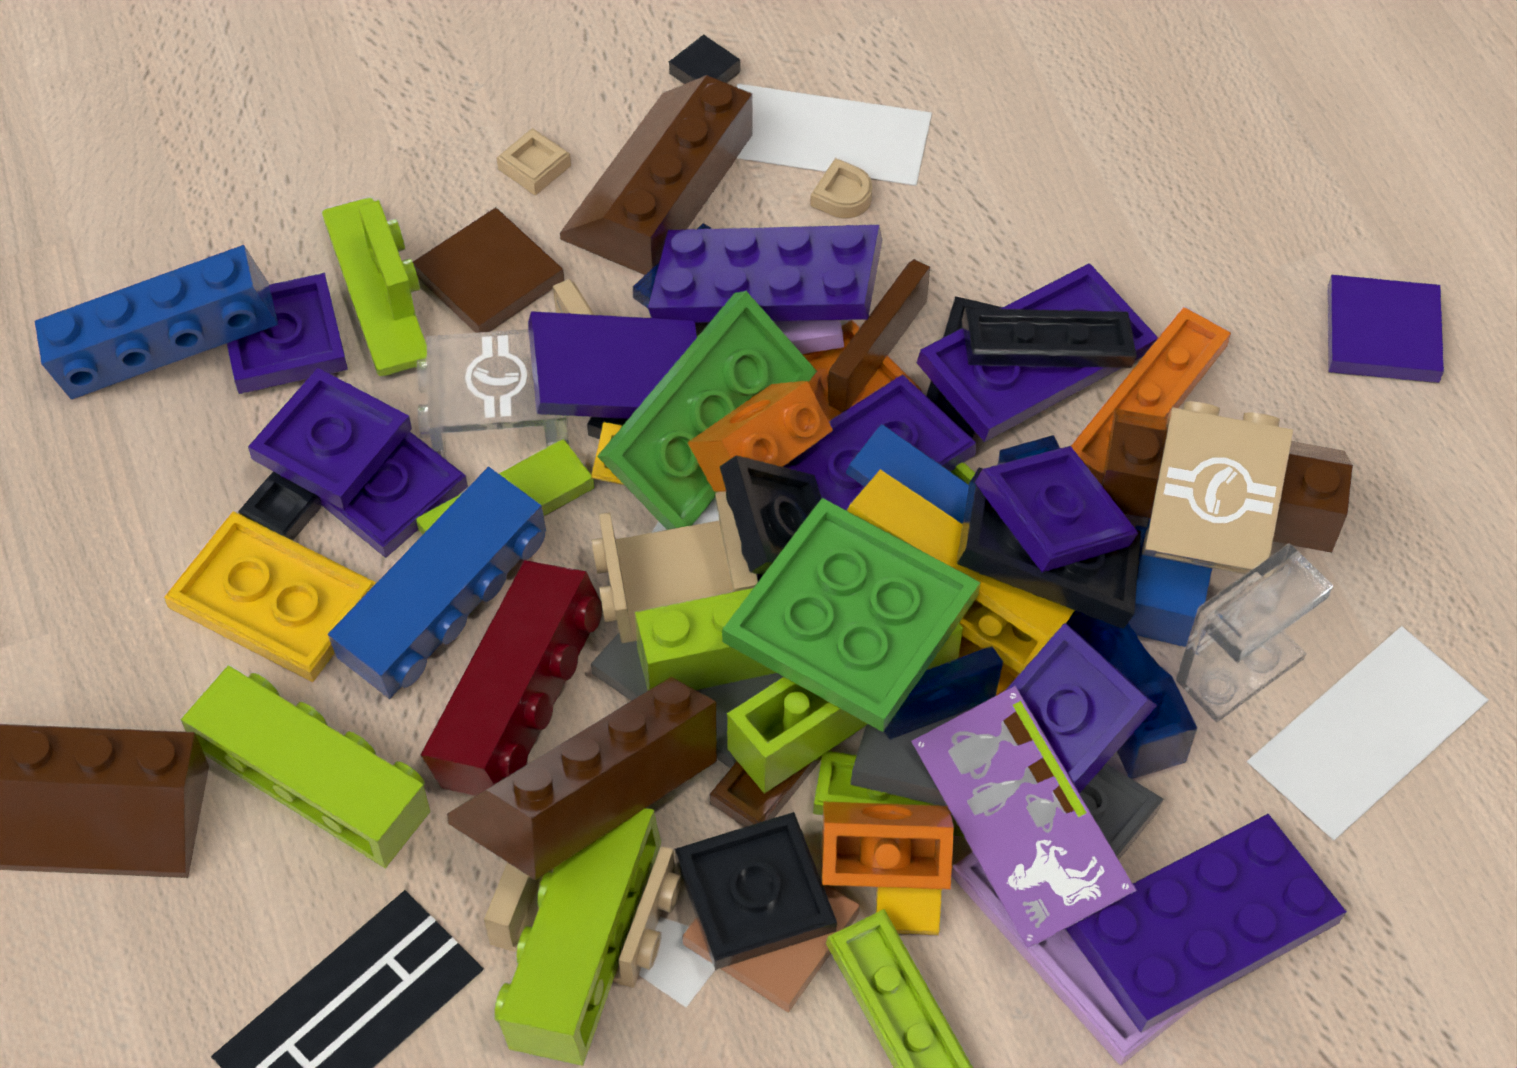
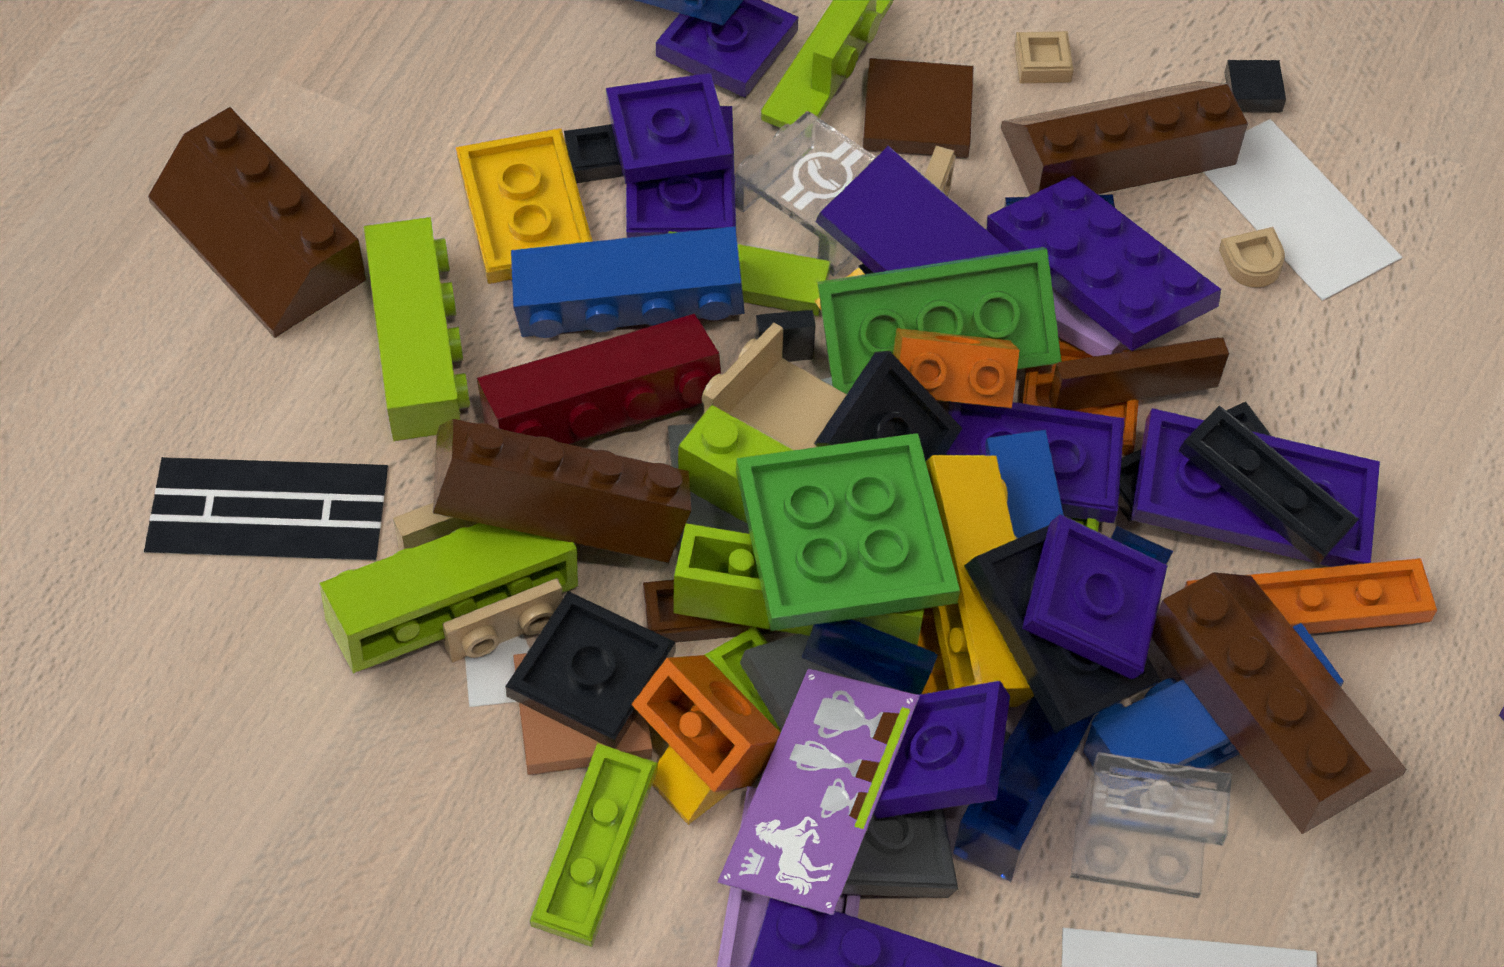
camera: 45 degrees right, 0 degrees up
(587, 522) = (797, 332): none -> black tile
(1218, 488) = (1235, 686): tan panel -> none

